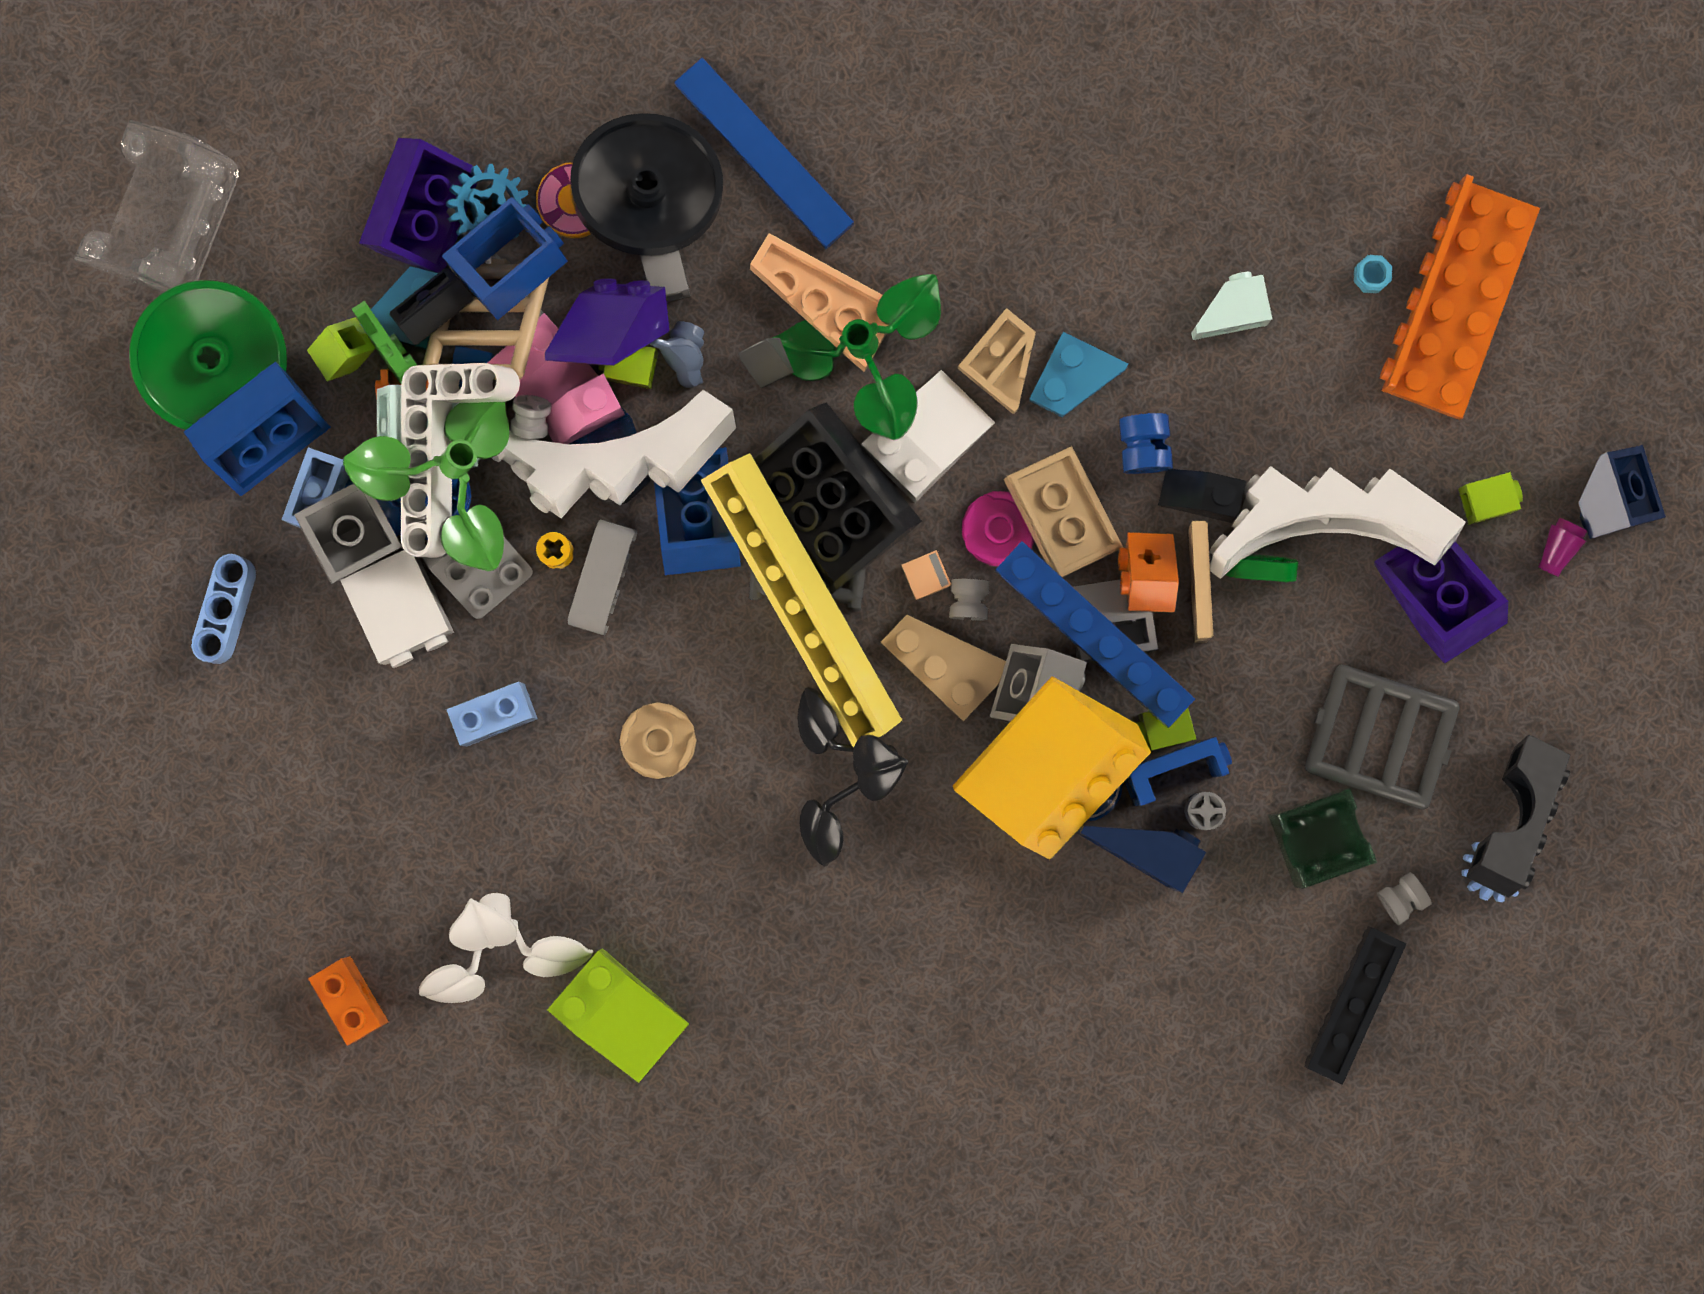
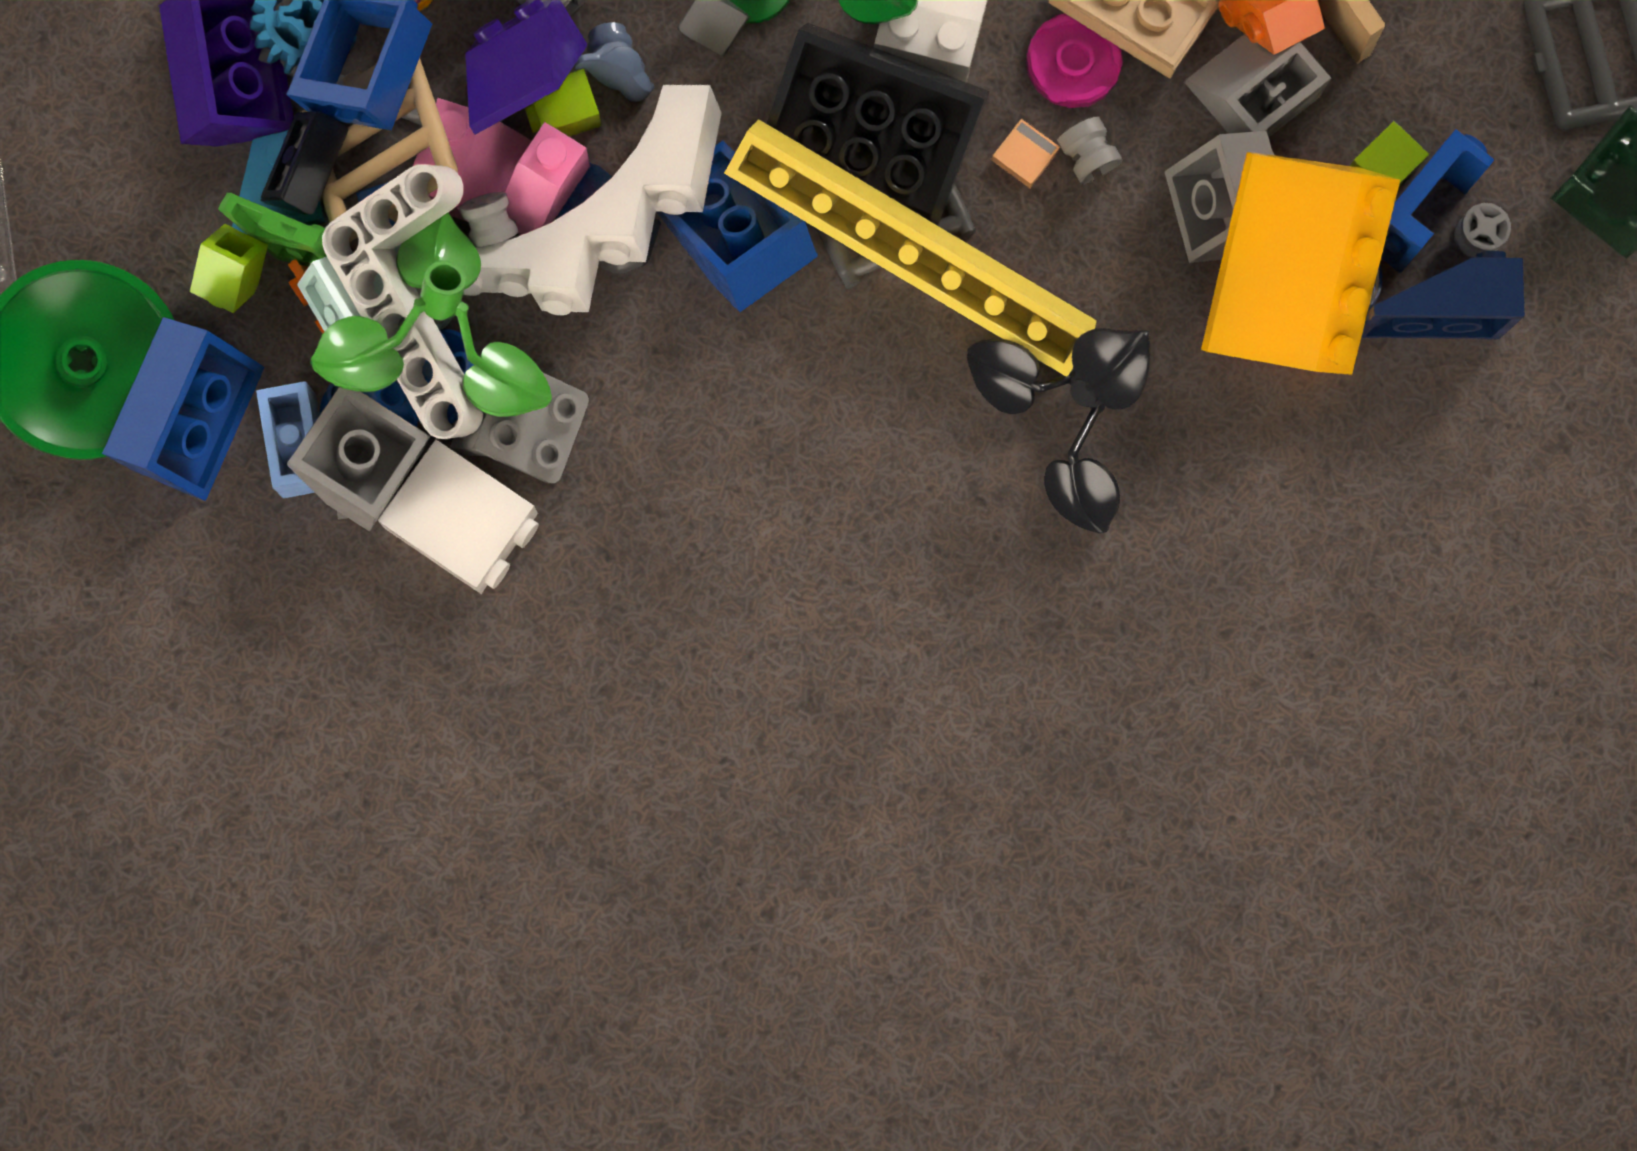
camera: 40 degrees left, 5 degrees down
(220, 589) = (244, 615): light blue beam -> none
(348, 1000) = (662, 990): orange brick -> none
(490, 925) = (780, 797): white plant -> none
(492, 714) = (637, 573): light blue brick -> none
(543, 551) = (592, 342): yellow bush -> none
(600, 577) = (671, 355): light grey beam -> none
(618, 1015) = (979, 827): lime slope -> none
(668, 748) = (837, 520): tan tile -> none
(945, 665) = (1105, 237): tan wing -> none
(1095, 634) = (1255, 98): blue plate -> none

